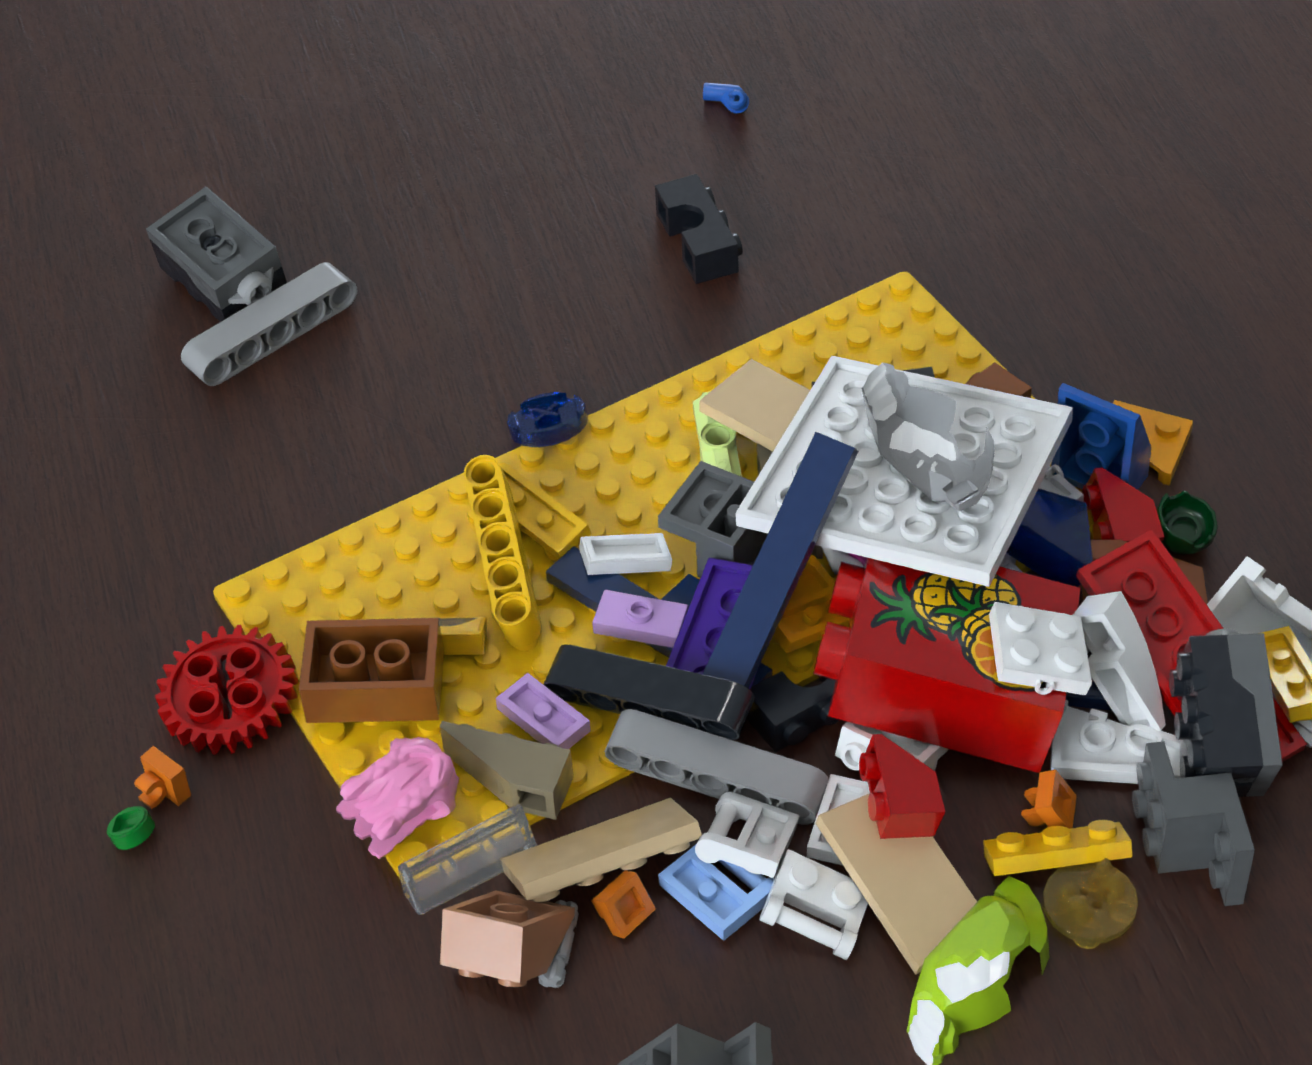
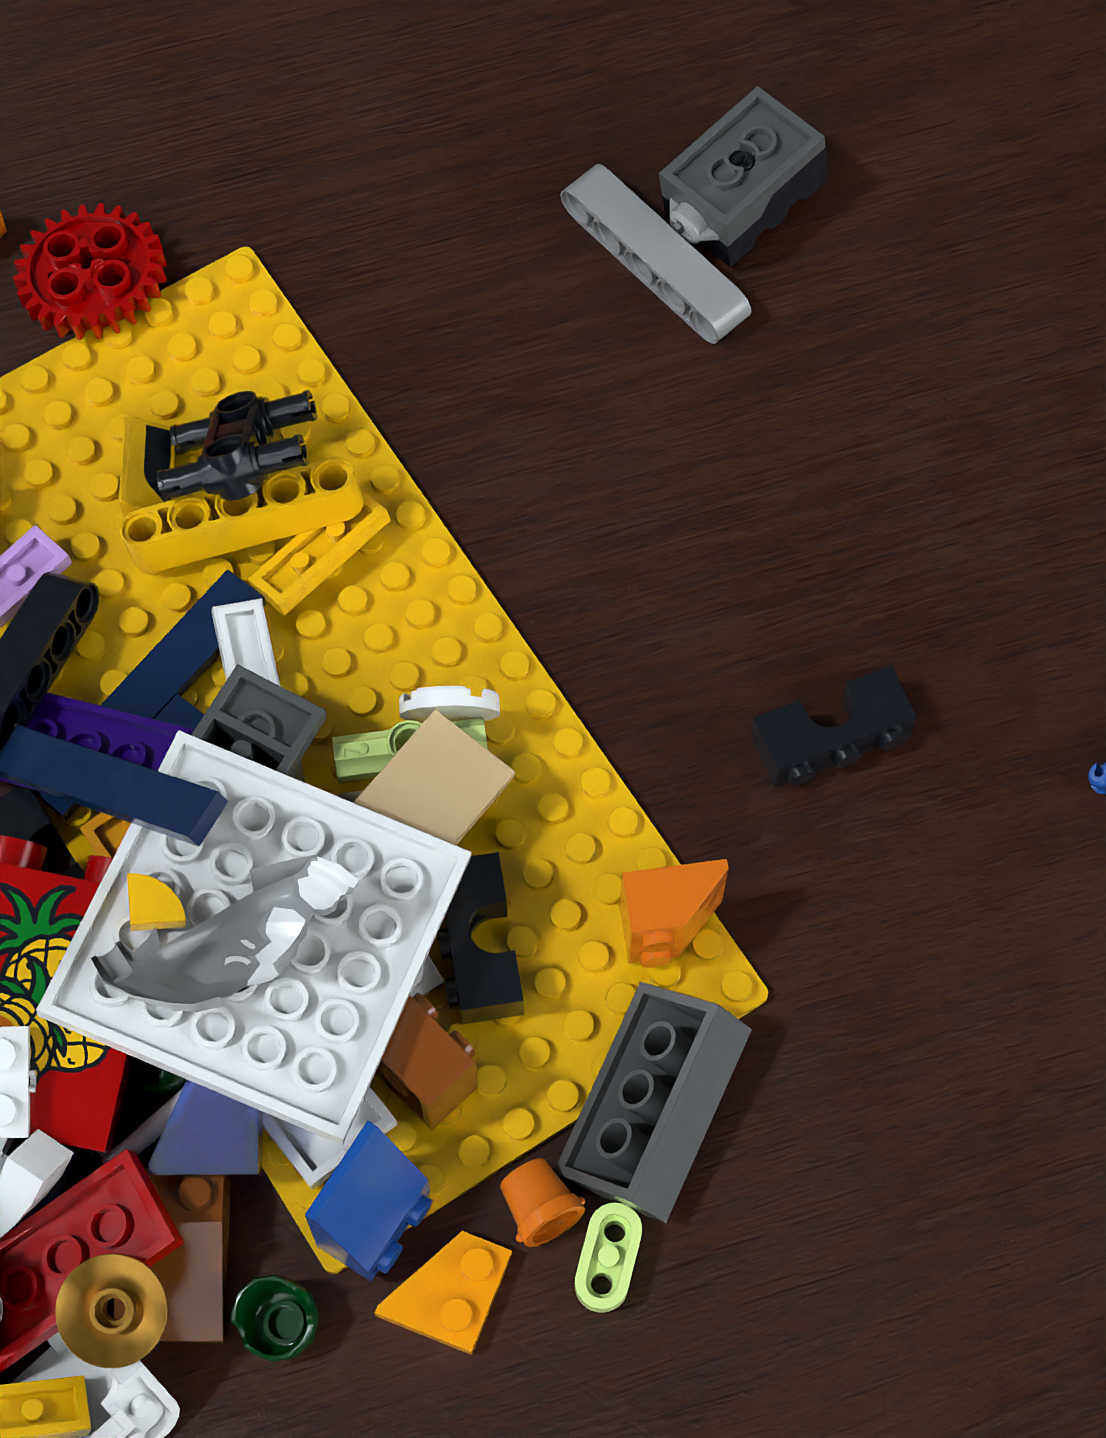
camera: 85 degrees right, 20 degrees up
(372, 670) = (73, 397): dark orange brick -> none
(442, 540) = (238, 446): none -> black piece
(547, 420) = (486, 565): clear blue tile -> none
(639, 618) = (139, 666): lavender plate -> none
(687, 411) = (451, 702): none -> white tile
(859, 290) = (668, 908): none -> orange slope
(894, 508) = (153, 904): none -> yellow tile
(997, 314) = (653, 1100): none -> dark grey slope
(1081, 371) = (540, 1203): none -> orange piece
(1113, 348) = (608, 1258): none -> yellowish green plate
(1119, 508) = (271, 1237): red slope -> none
(1209, 571) = (84, 1317): none -> pearl gold dish

